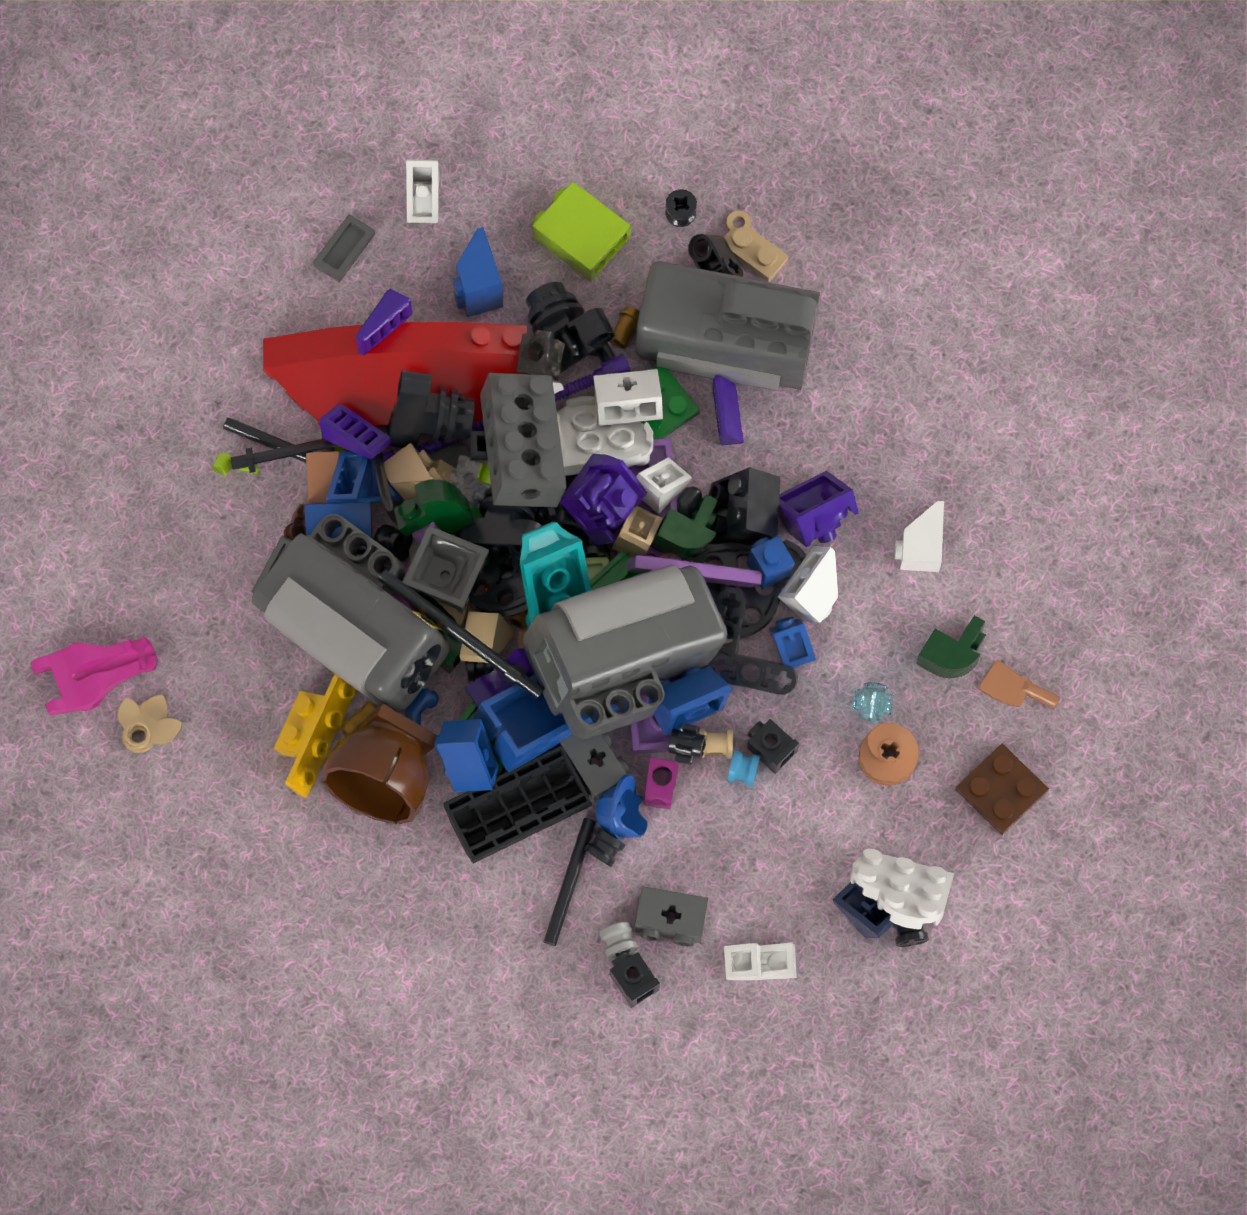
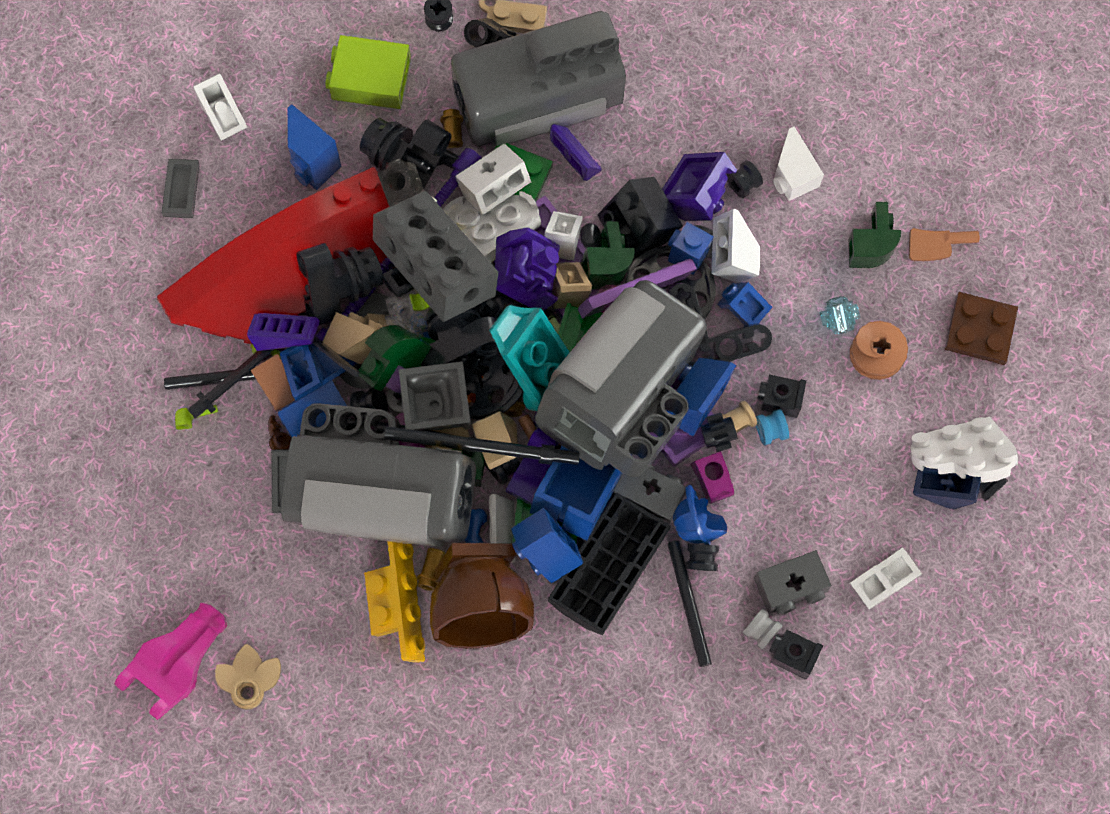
camera: 30 degrees left, 0 degrees up
(385, 318) = (256, 212): dark purple slope -> none
(448, 708) = (501, 519): none -> white slope
(868, 526) = (745, 179): none -> black wheel

